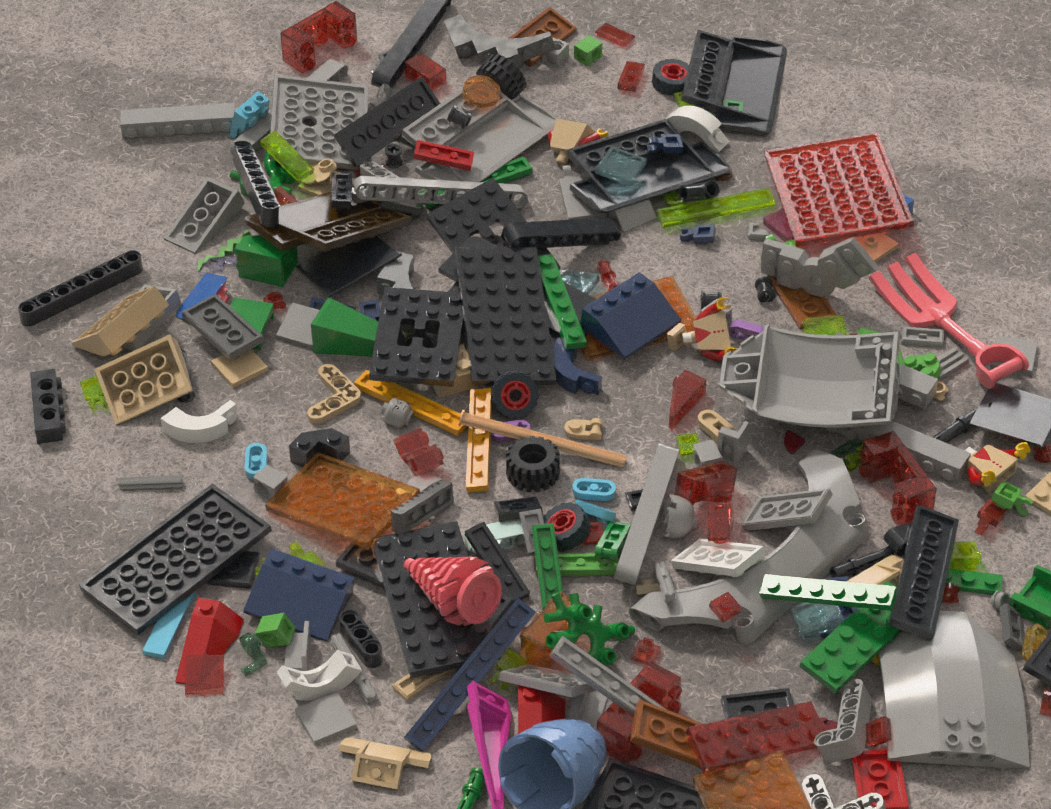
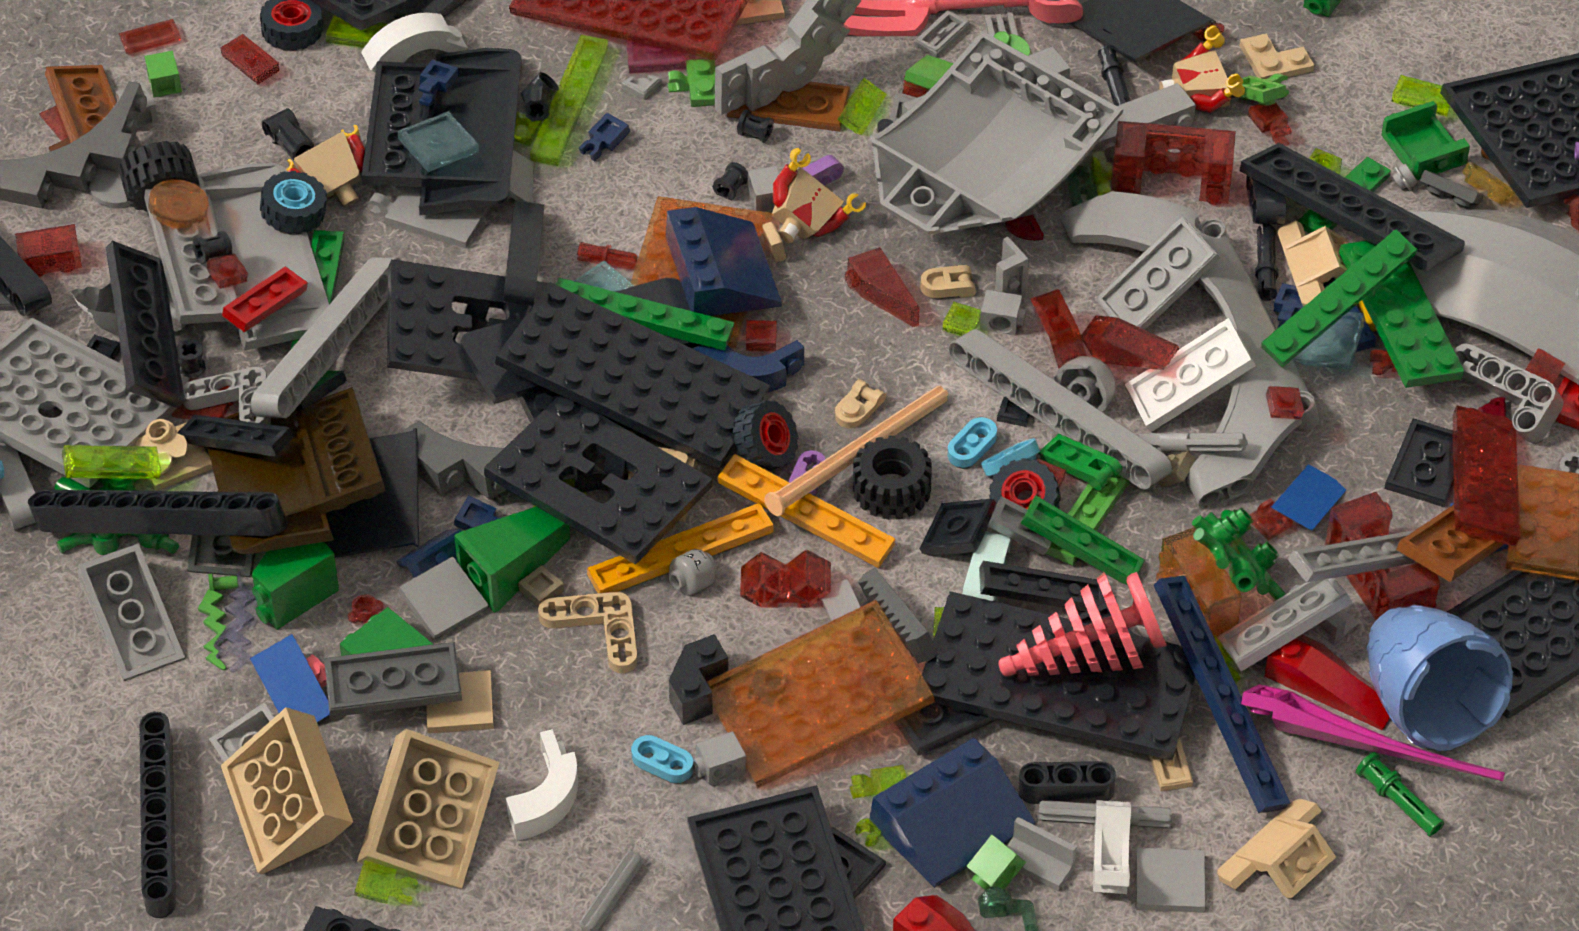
camera: 60 degrees left, 5 degrees up
(342, 359) = (540, 585): none -> dark tan plate
(451, 132) = (227, 271): none -> clear red plate
(528, 135) = (293, 202): none -> black wheel
(589, 112) = (285, 130): none -> black piece
(601, 364) = (761, 335): none -> clear red plate
(680, 661) = (1309, 497): none -> blue sticker

